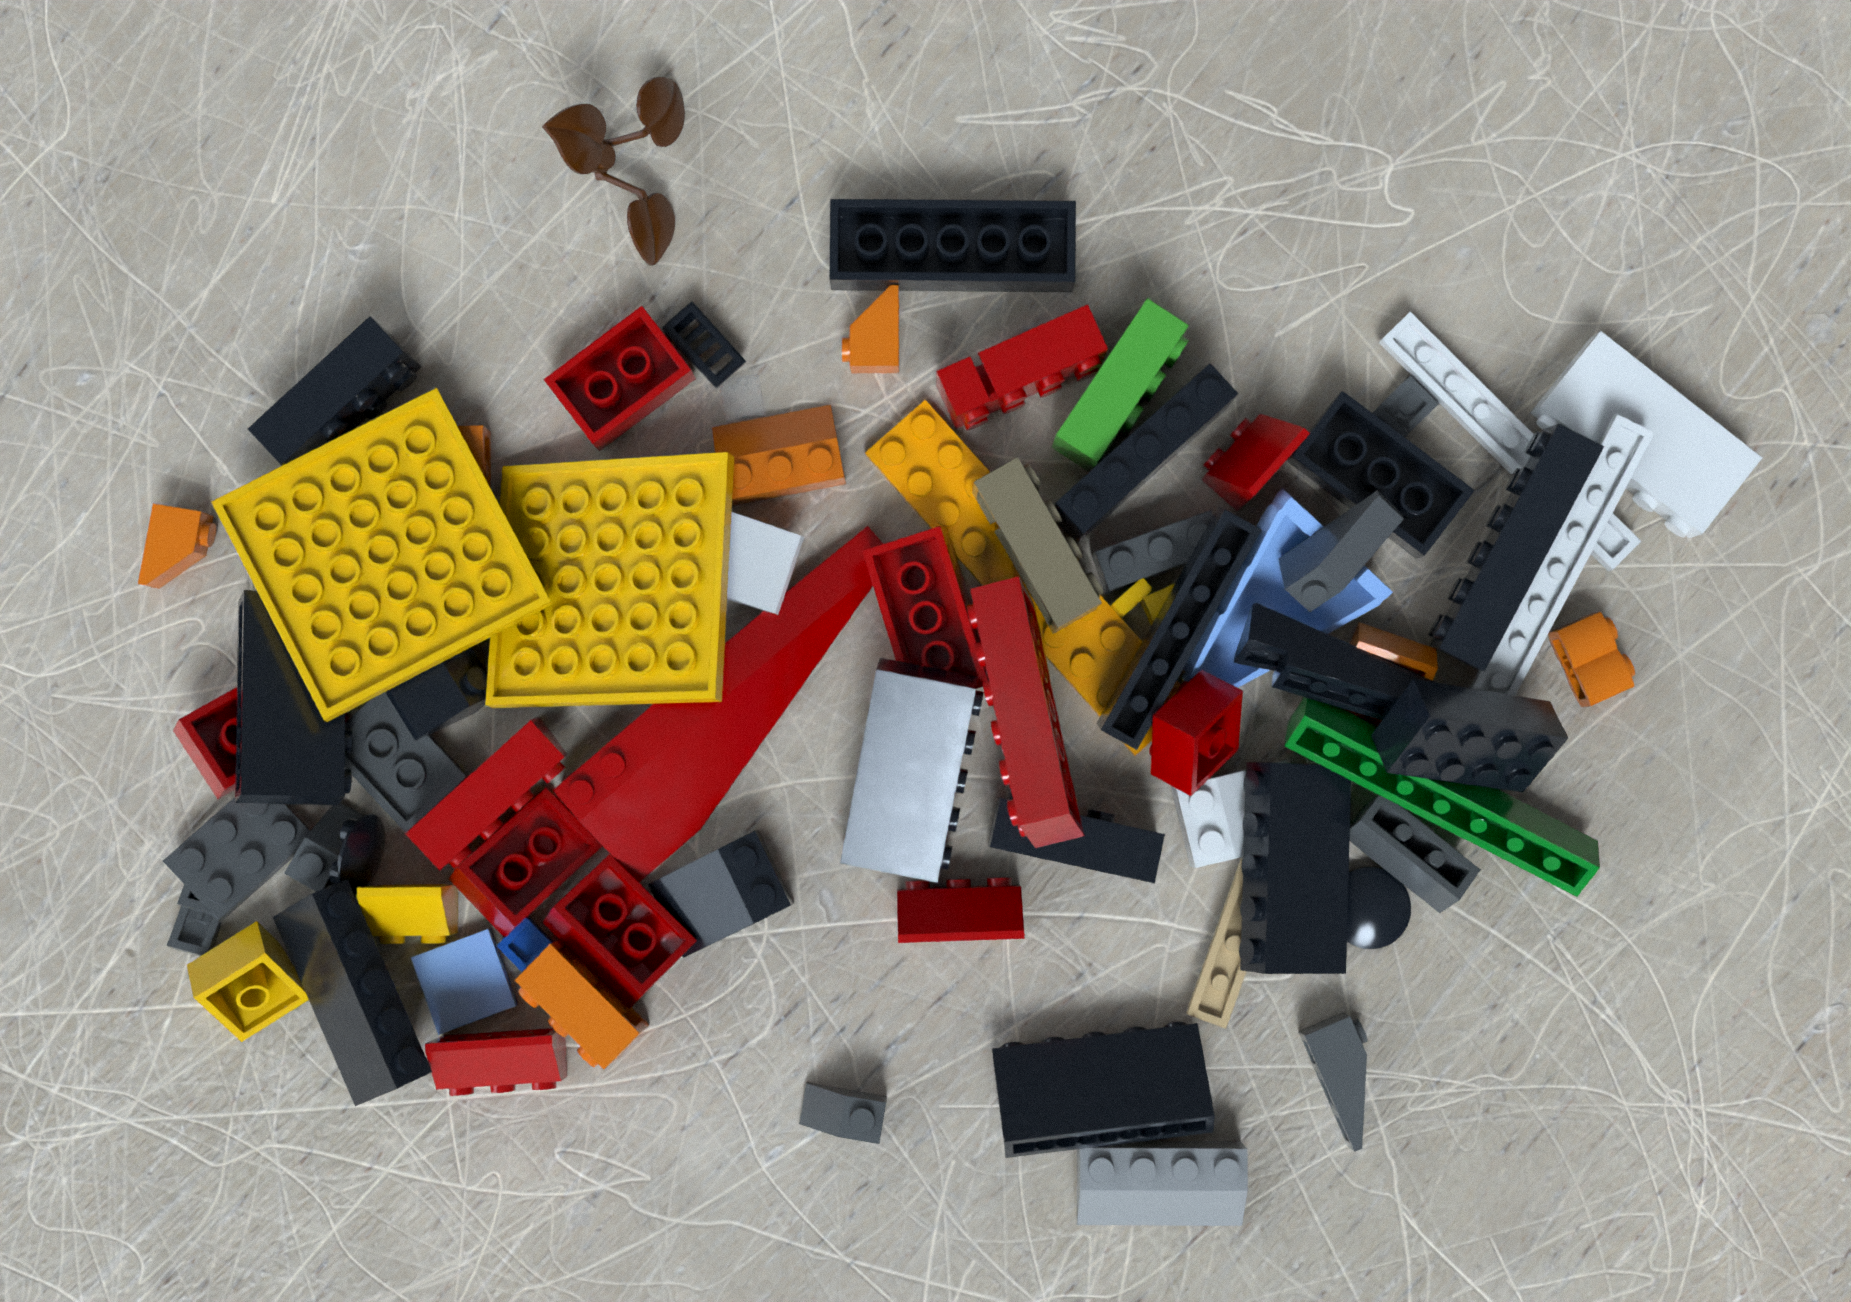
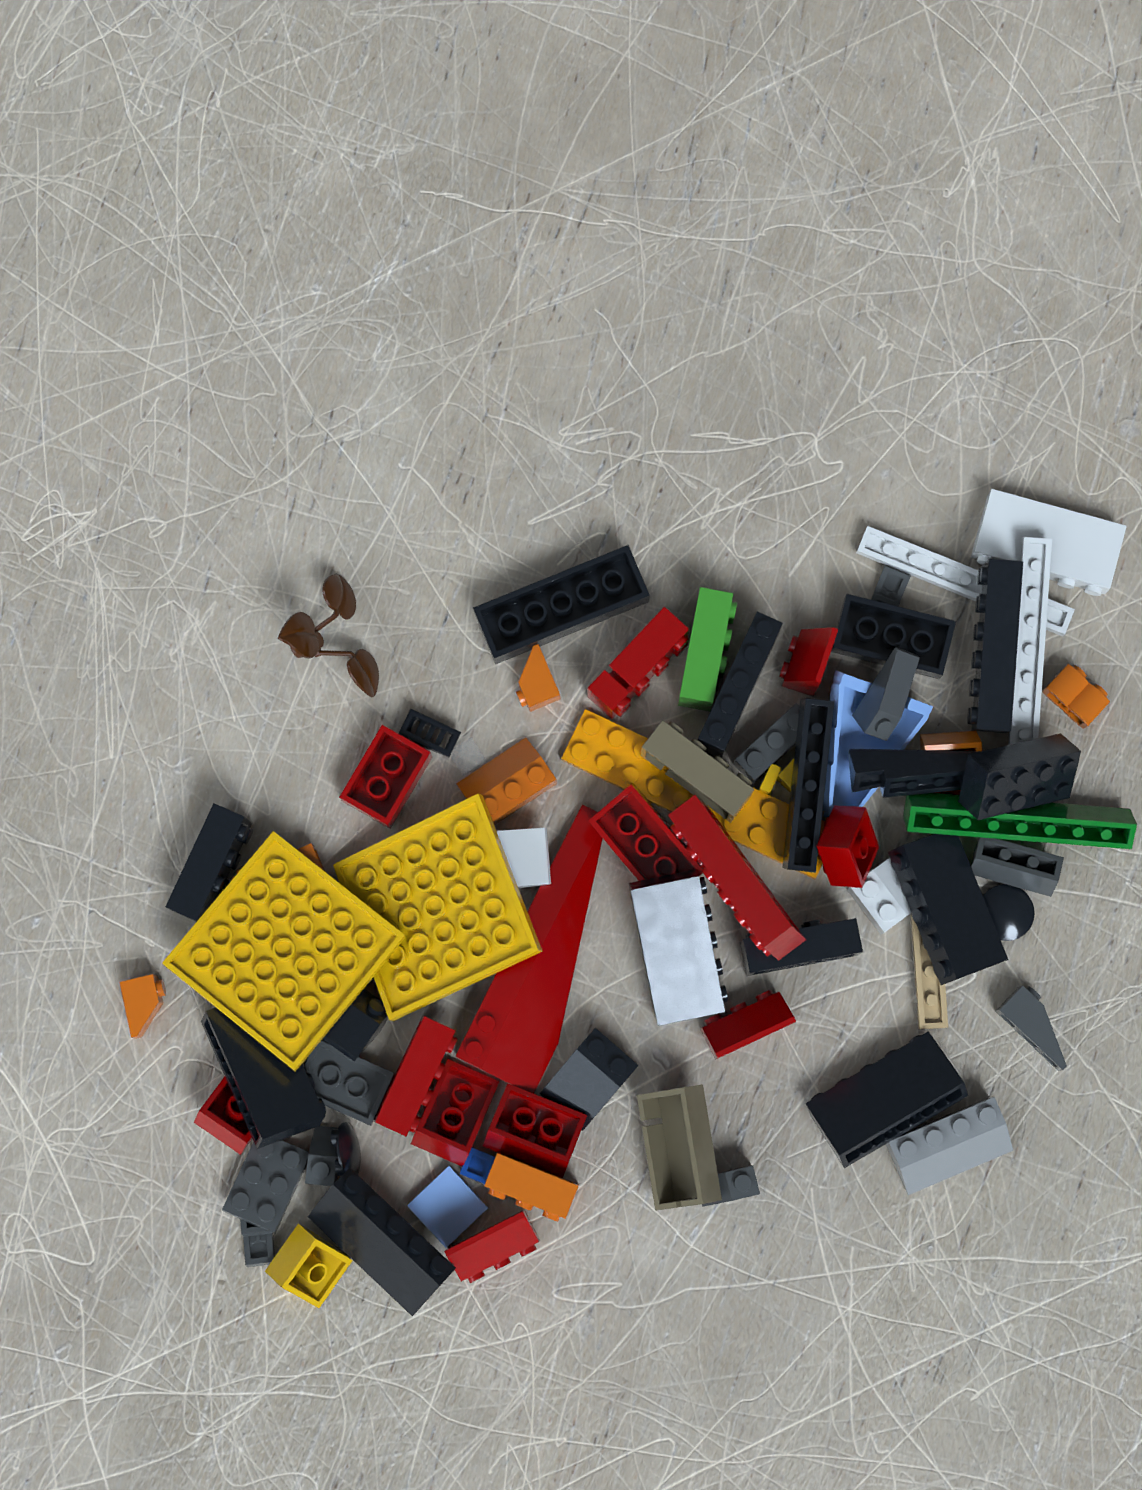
camera: 20 degrees left, 5 degrees down
(410, 911) = (396, 1173): yellow slope -> none
(798, 1038) = (679, 1148): none -> dark tan piece

